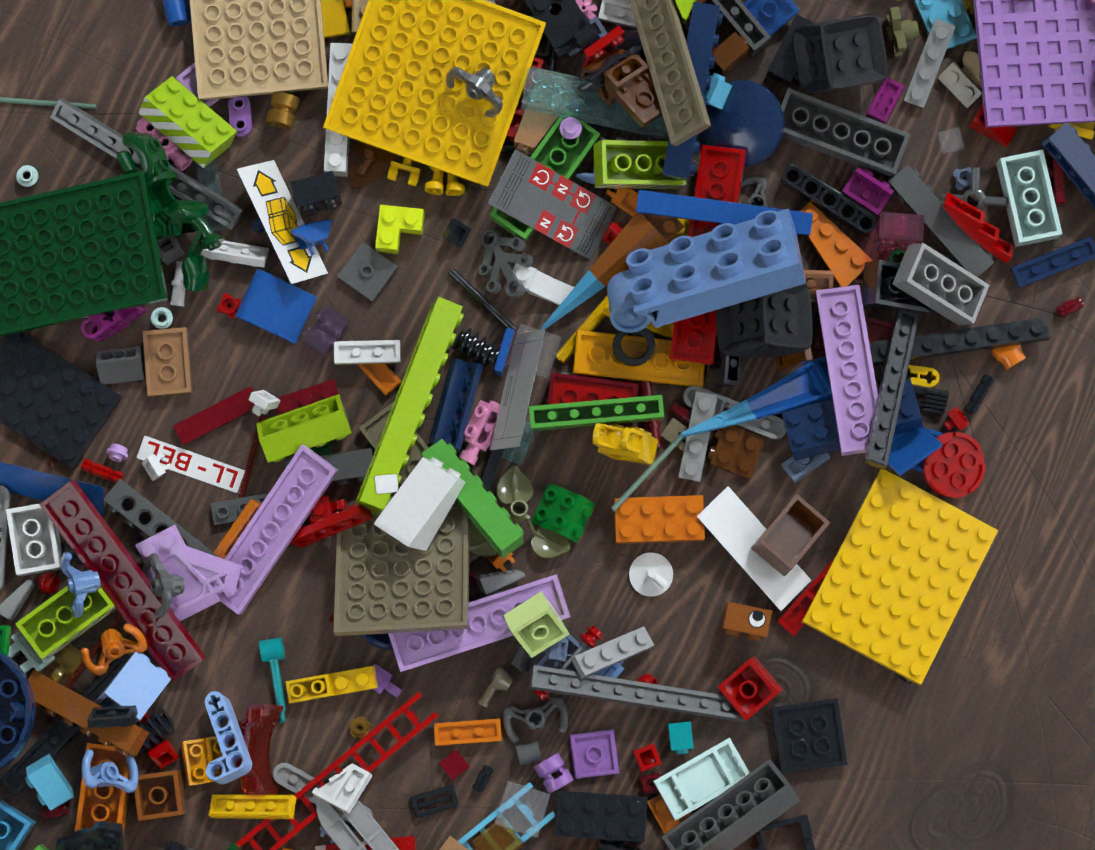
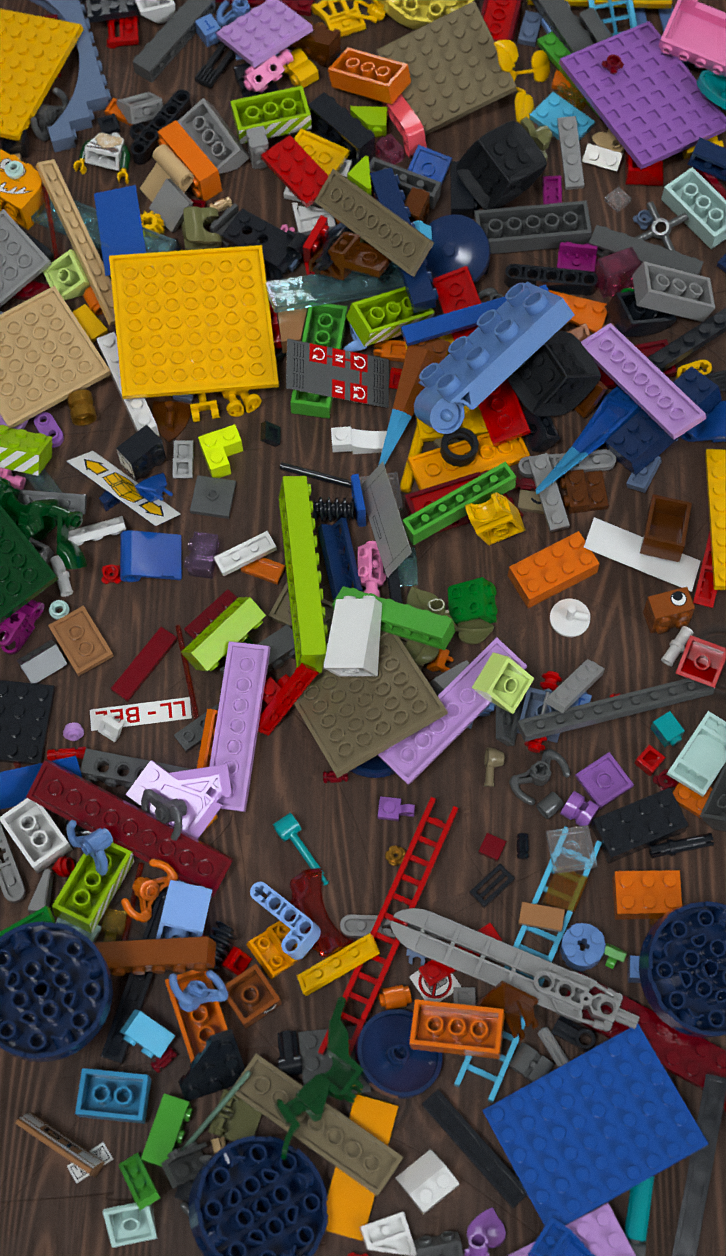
camera: 25 degrees left, 15 degrees down
(112, 716) = (171, 942): black plate -> none
(263, 402) = (178, 632): white tile -> none
(331, 684) = (353, 831): yellow slope -> none
(344, 788) = (411, 904): white wing -> none
(357, 216) = (183, 459): none -> light grey slope
(386, 483) = (317, 632): white sticker -> none
(467, 732) = (489, 813): orange plate -> none
(477, 87) = (232, 309): dark grey piece -> none
(492, 242) = (303, 427): dark grey plant -> none
(558, 650) = (529, 702): sand blue tile -> none
(570, 128) = (321, 310): lavender plate -> none
(647, 472) = (524, 535): sand green axle -> none
(737, 657) = (677, 646): none -> white pin
(891, 389) = (683, 376): black tile -> none
(972, 223) = (671, 240): red slope -> none

